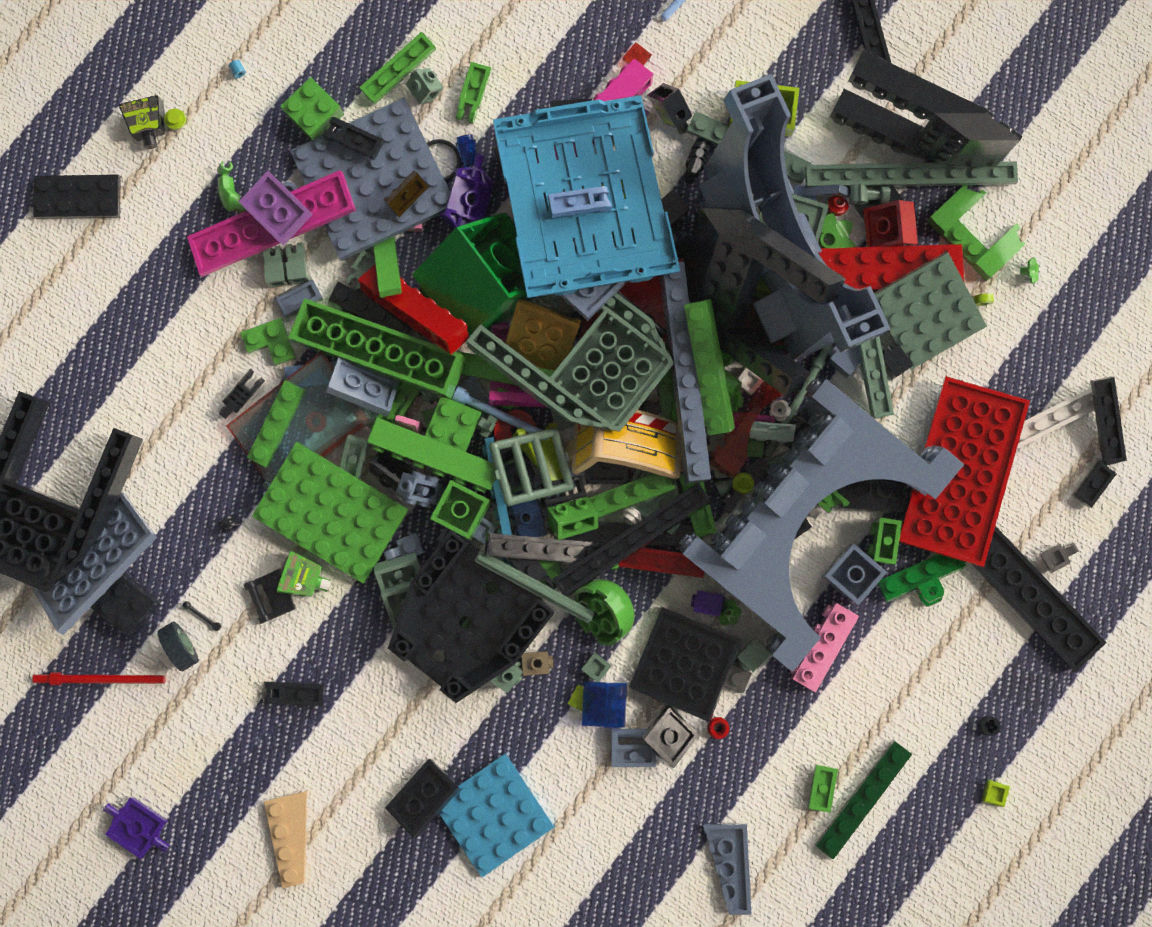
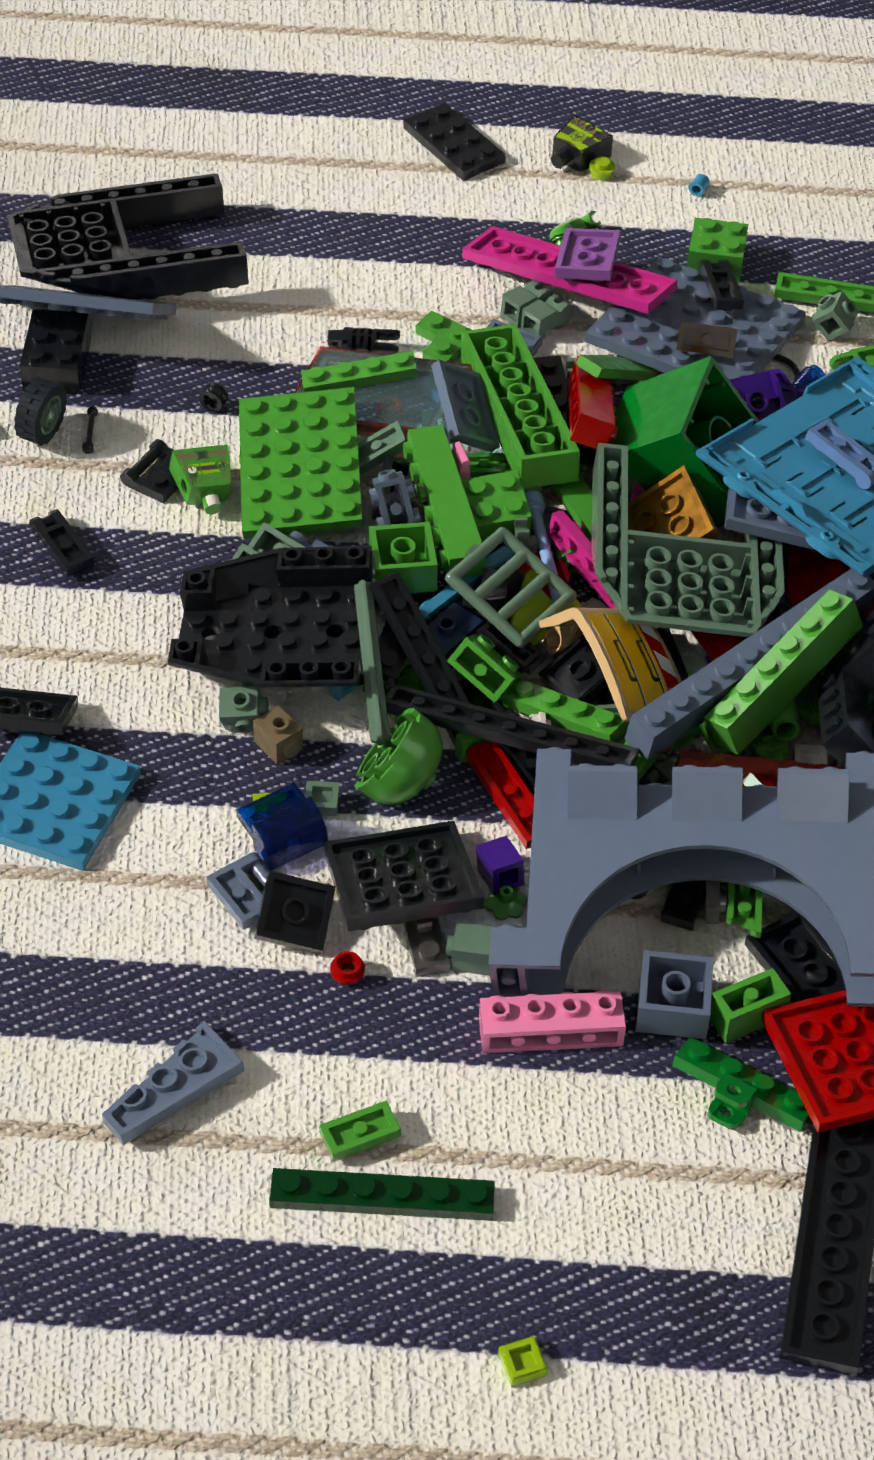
camera: 50 degrees right, 35 degrees down
(984, 730) = (606, 1302): black bush -> none

